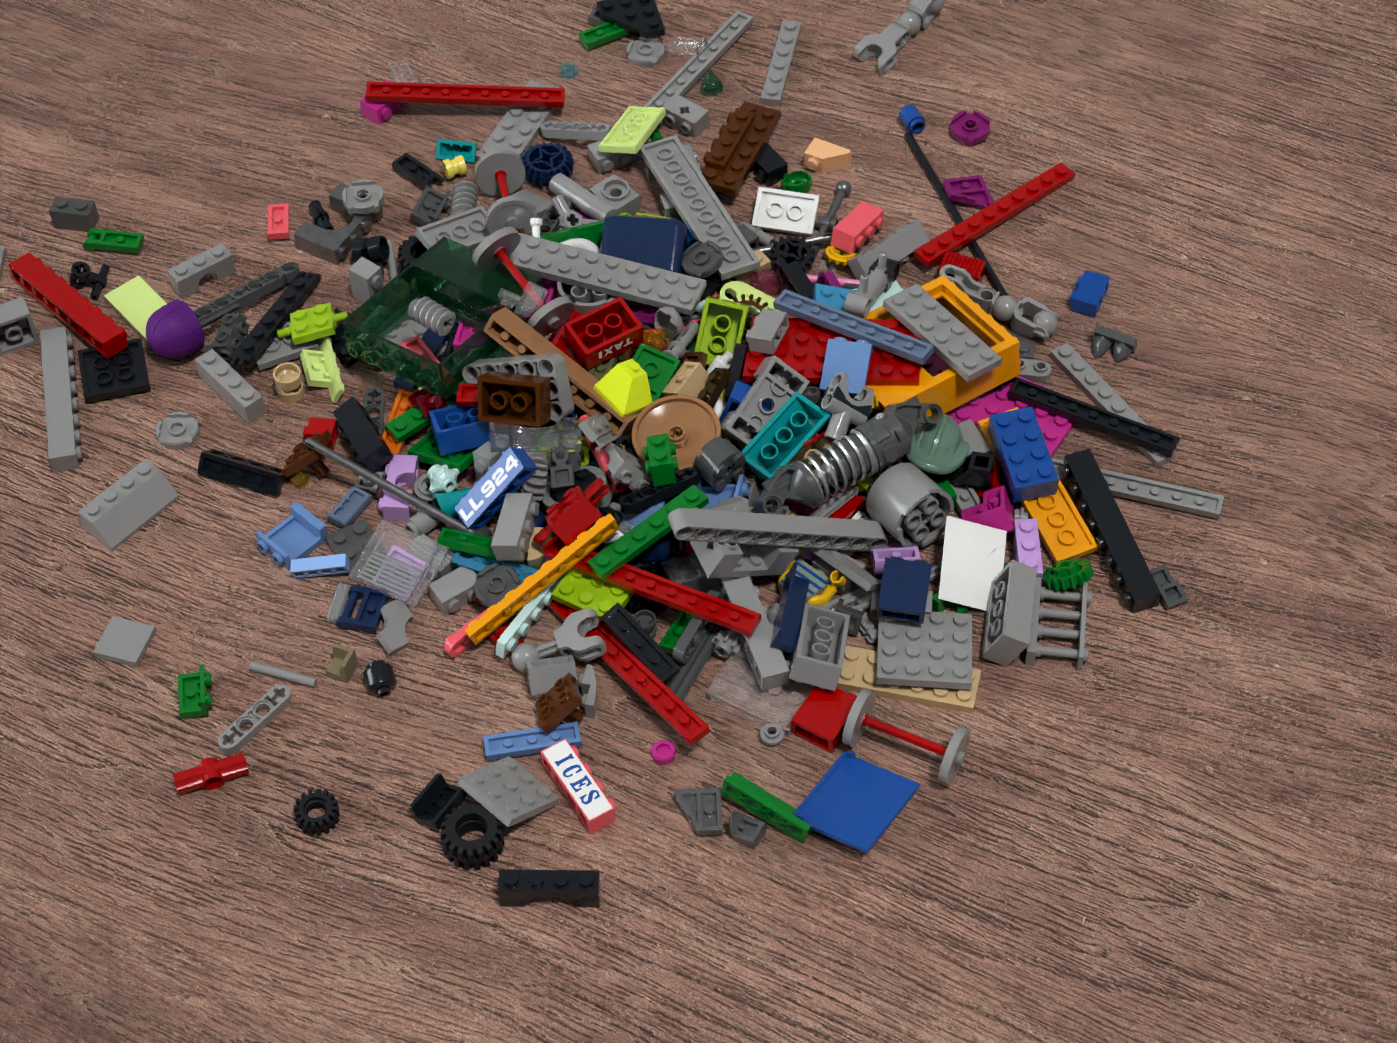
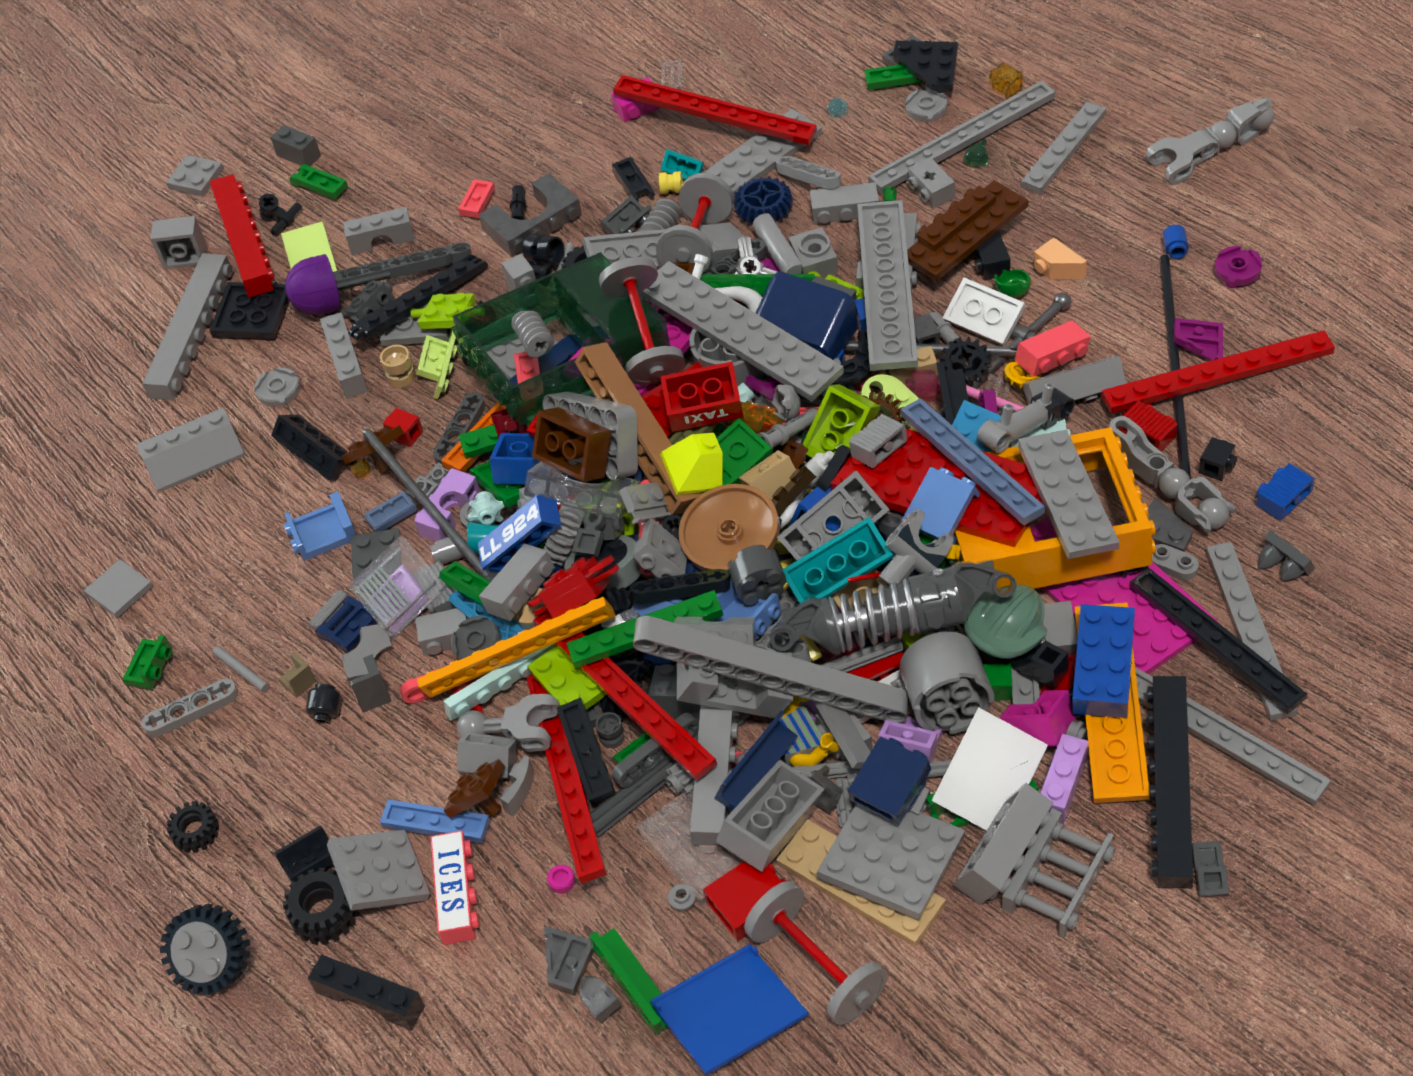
camera: 30 degrees right, 0 degrees up
(210, 773) = (119, 751): red piece -> none
(320, 566) = (329, 565): light blue piece -> none
(357, 205) = (553, 200): light grey plate -> none
(362, 435) = (434, 440): black brick -> none
(394, 898) = (205, 949): none -> wheel
(422, 649) = (370, 687): none -> dark grey panel
(527, 304) = (635, 340): clear brick -> none
(632, 130) = (861, 184): yellowish green tile -> none
(661, 460) = (690, 553): green brick -> none
(686, 45) = (969, 106): clear tile -> none
(702, 259) = (857, 342): dark grey tile -> none
(706, 16) = (1006, 80): none -> clear yellow brick
(1027, 281) = (1217, 459): none -> black brick
(1067, 574) = (1096, 818): green gear -> none

